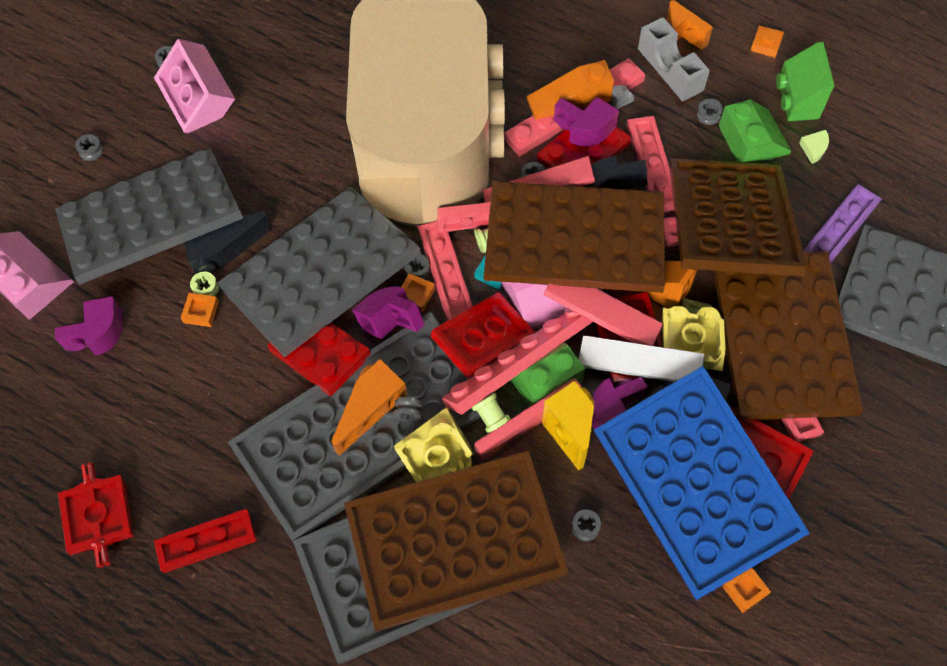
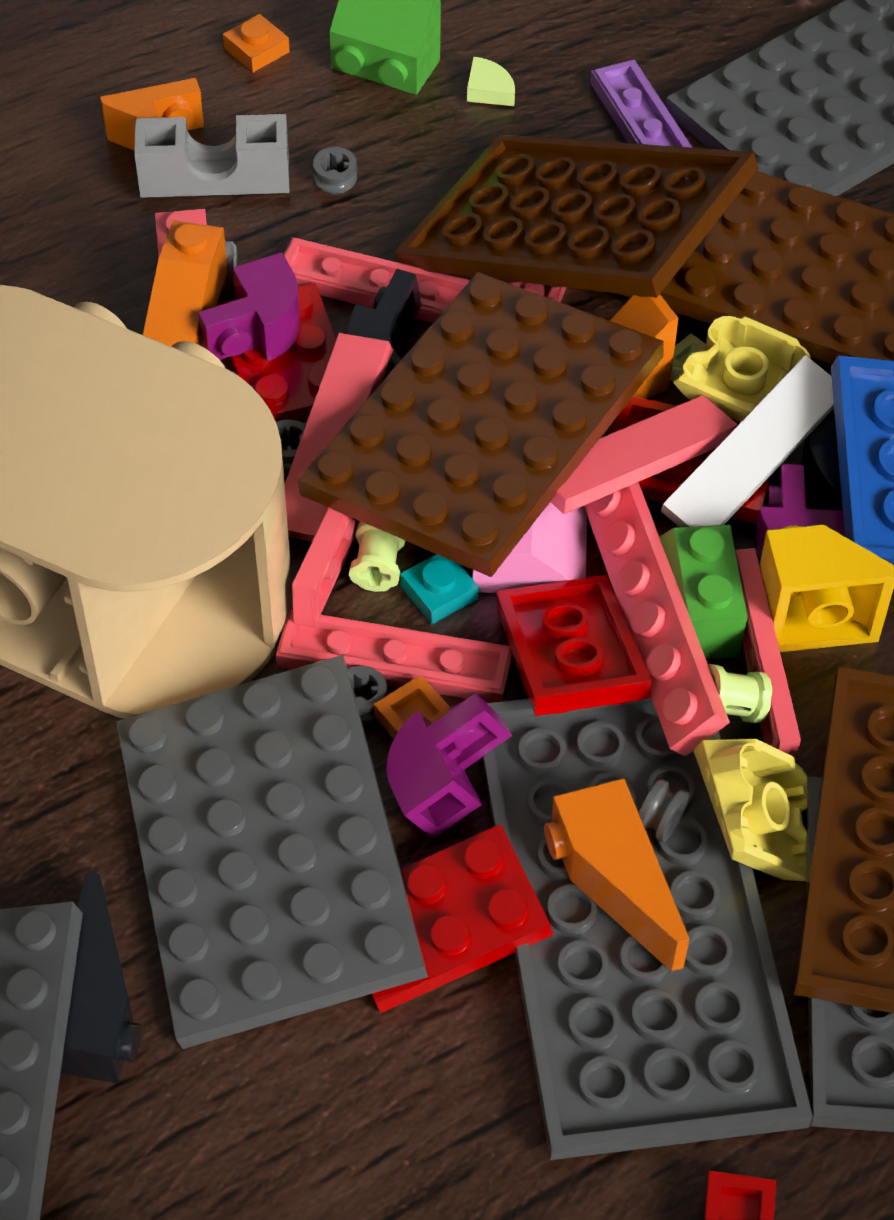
camera: 65 degrees left, 10 degrees down
(199, 309) = (218, 1094): orange plate -> none
(203, 277) = (170, 1051): yellowish green bush -> none
(752, 133) = (417, 142): bright green slope -> none

